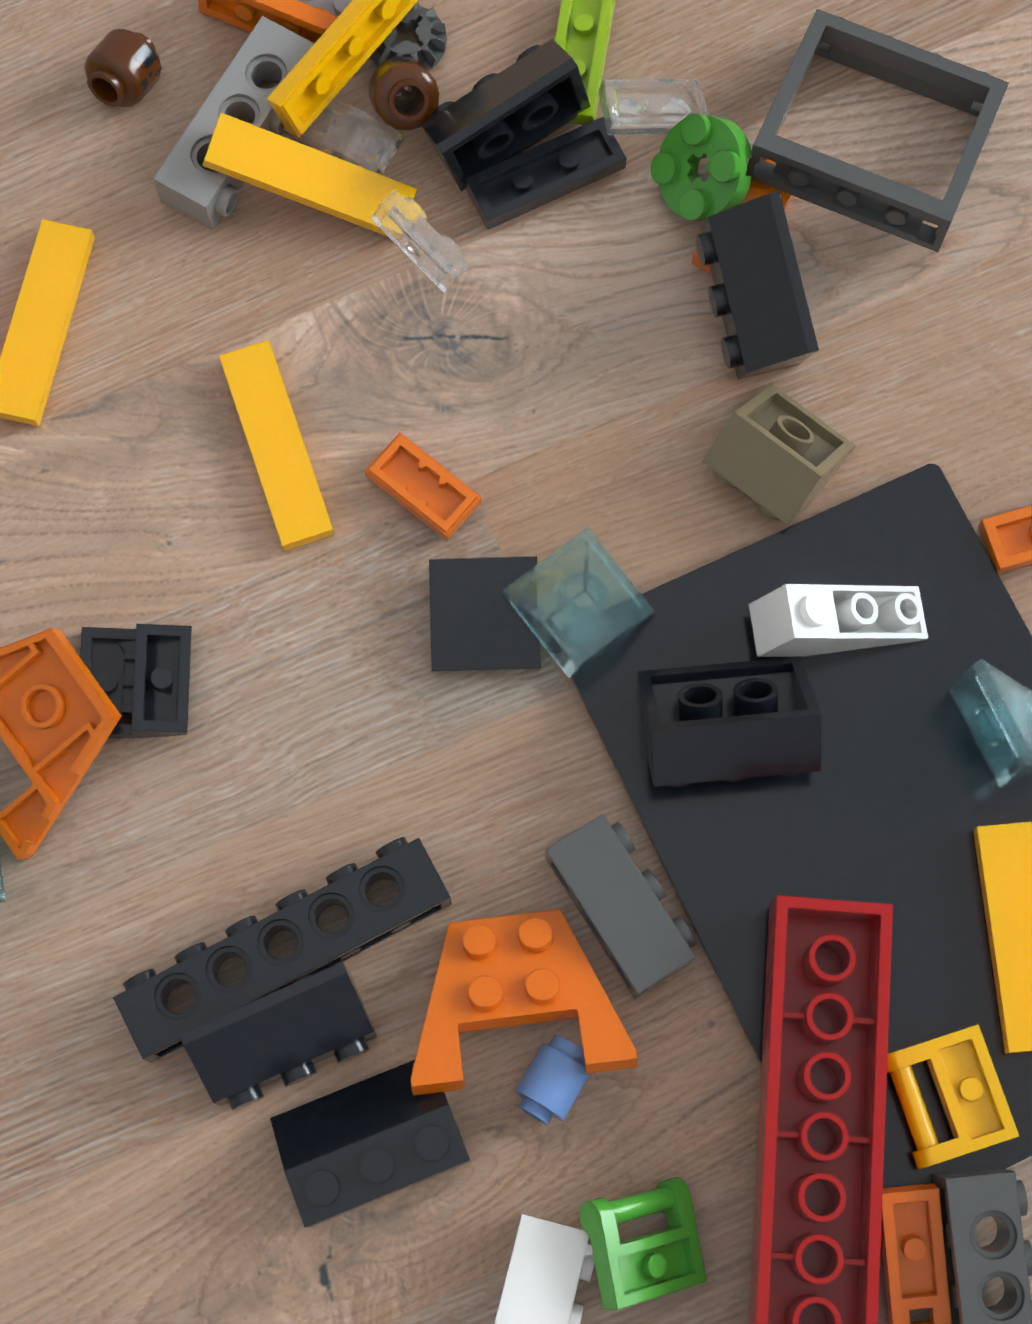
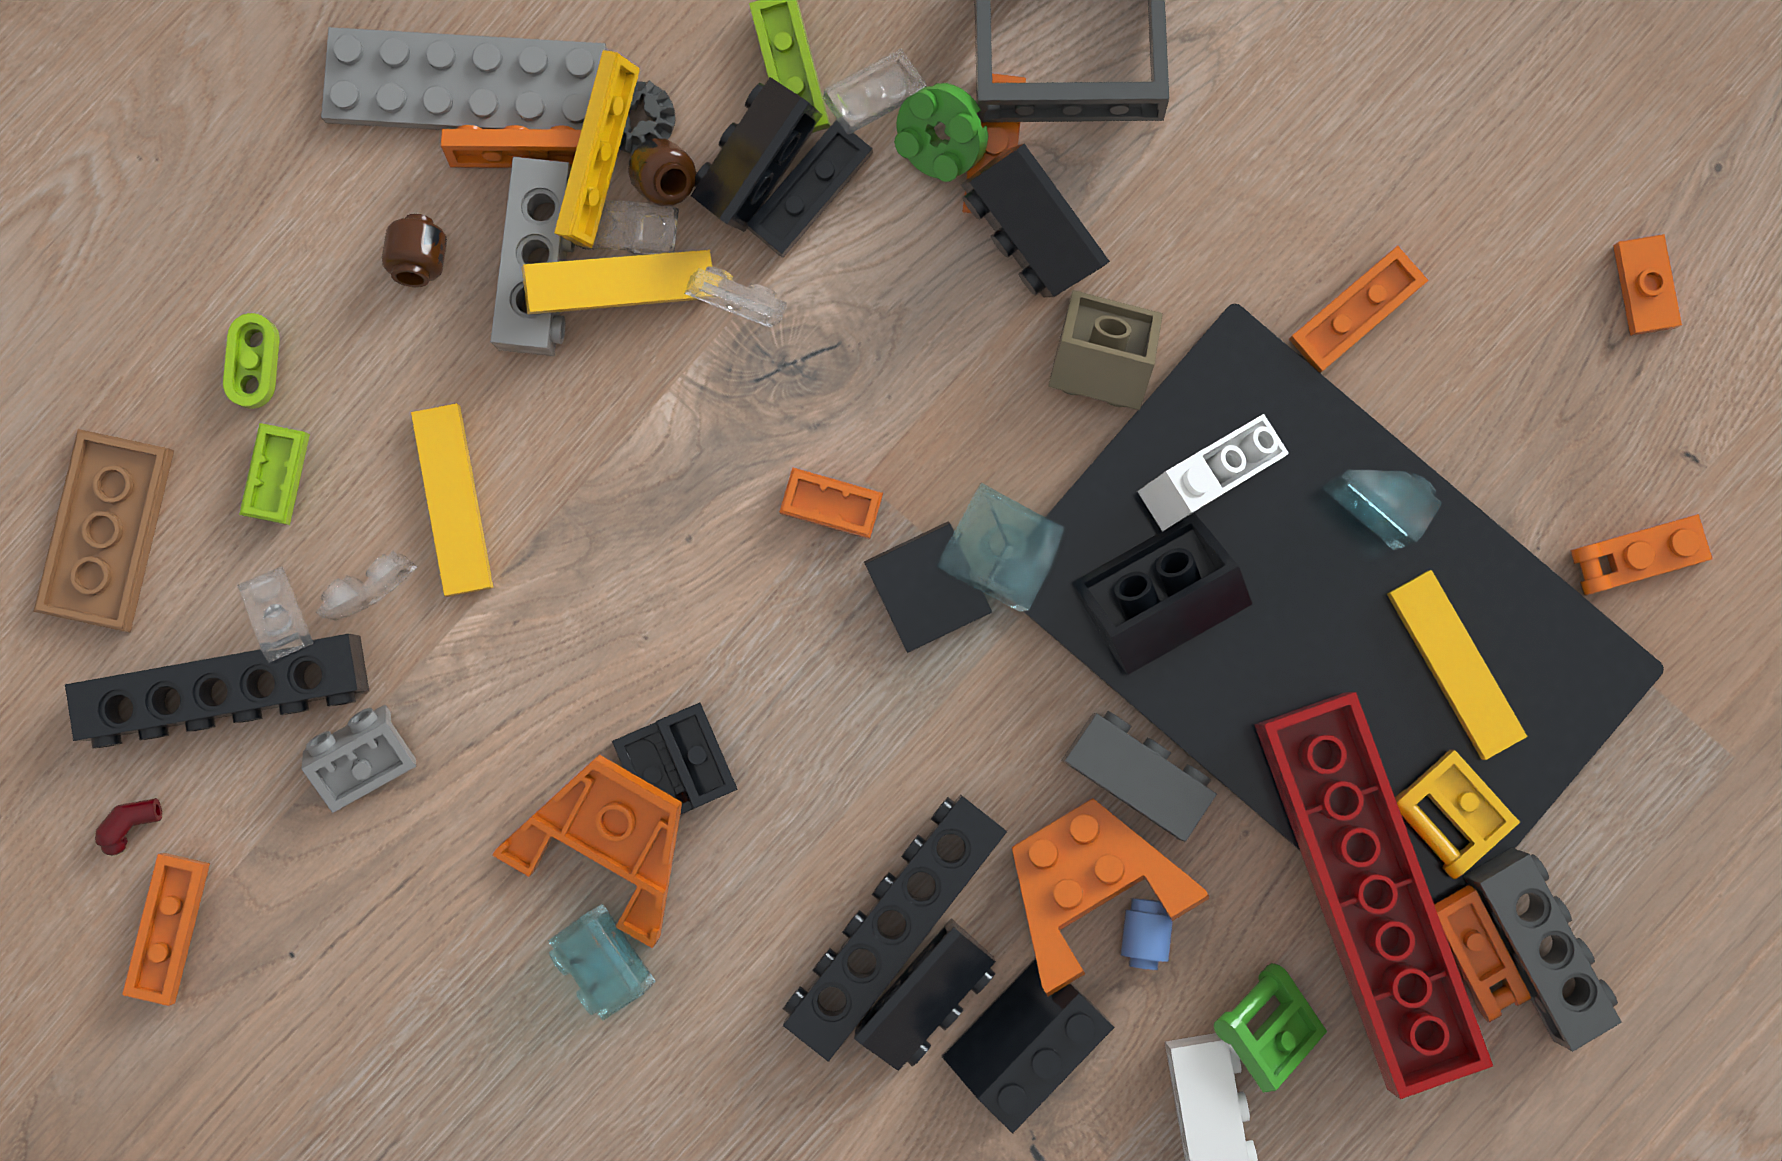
camera: 20 degrees left, 10 degrees up
(276, 445) = (695, 519): yellow tile -> none

